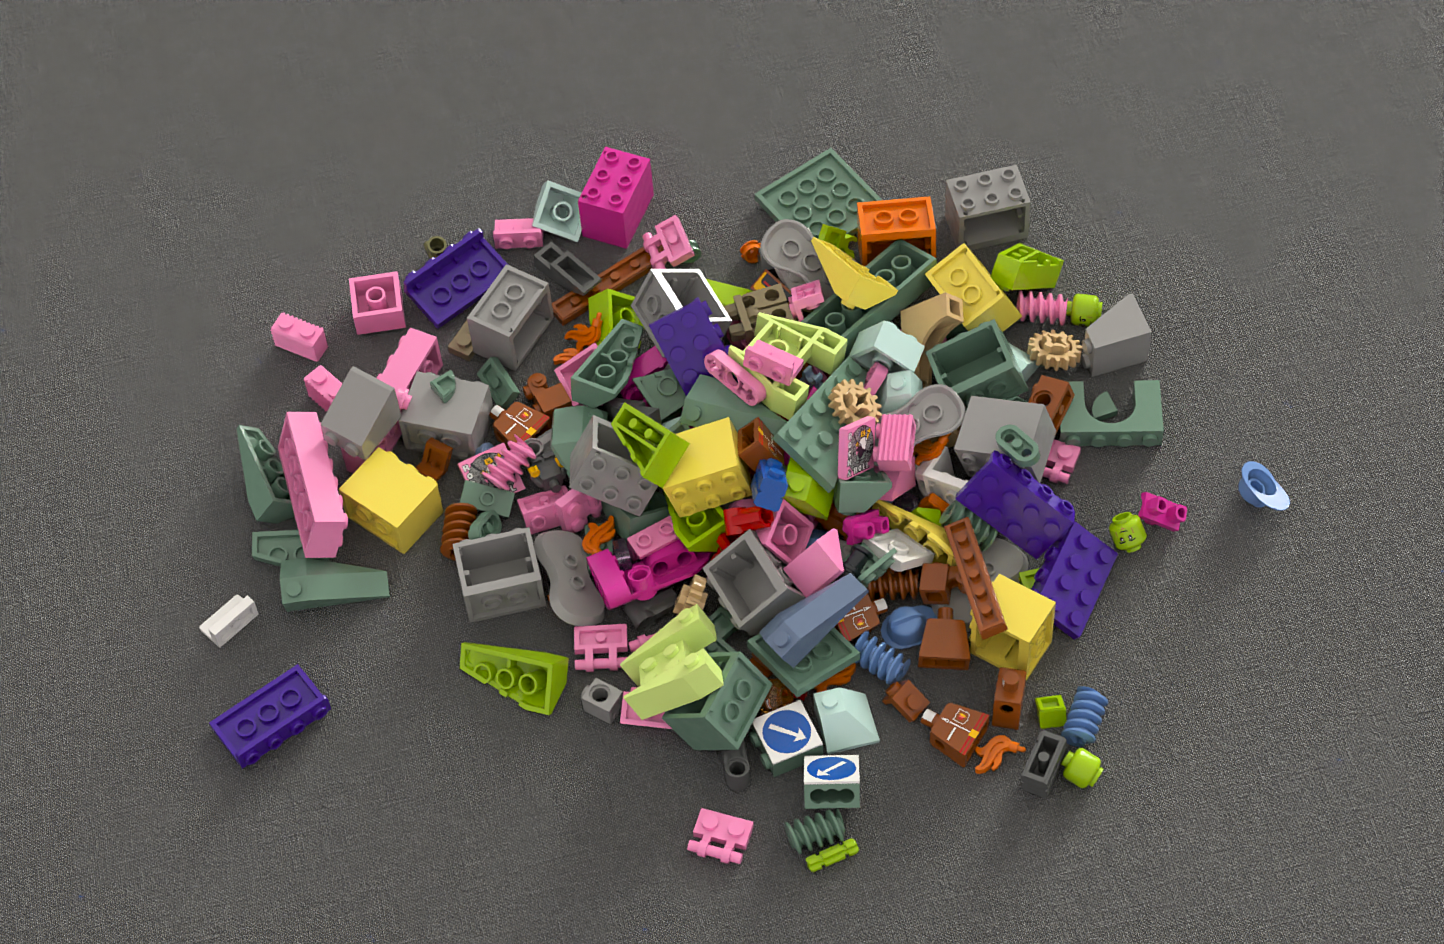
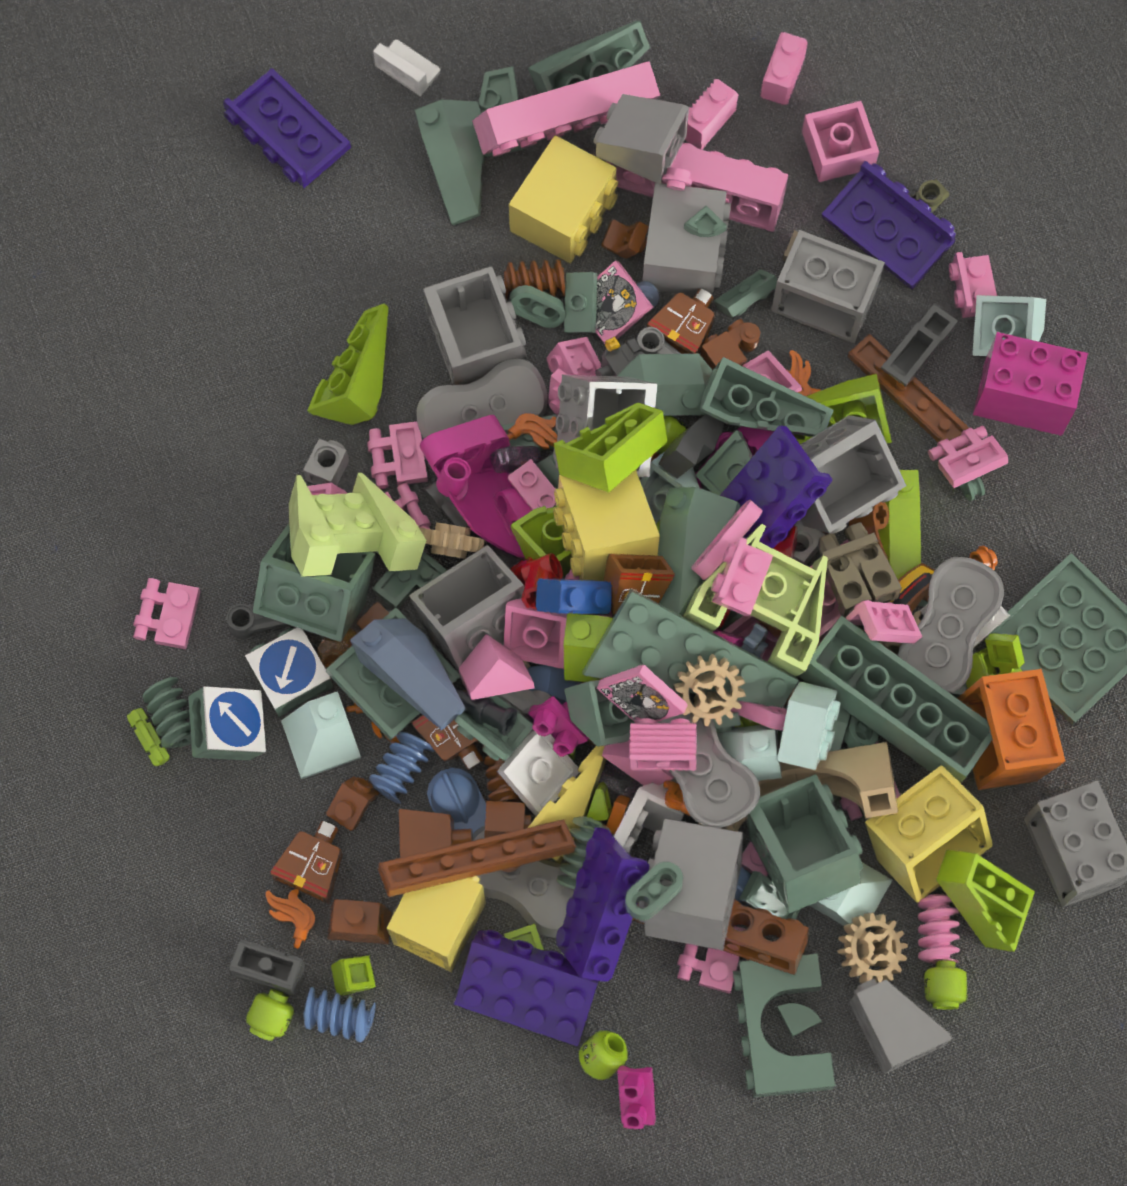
camera: 80 degrees right, 15 degrees up
(510, 463) = (617, 315): bright pink piece -> none
(584, 335) = (824, 380): orange piece -> none
(850, 279) = (908, 672): light yellow wedge -> none

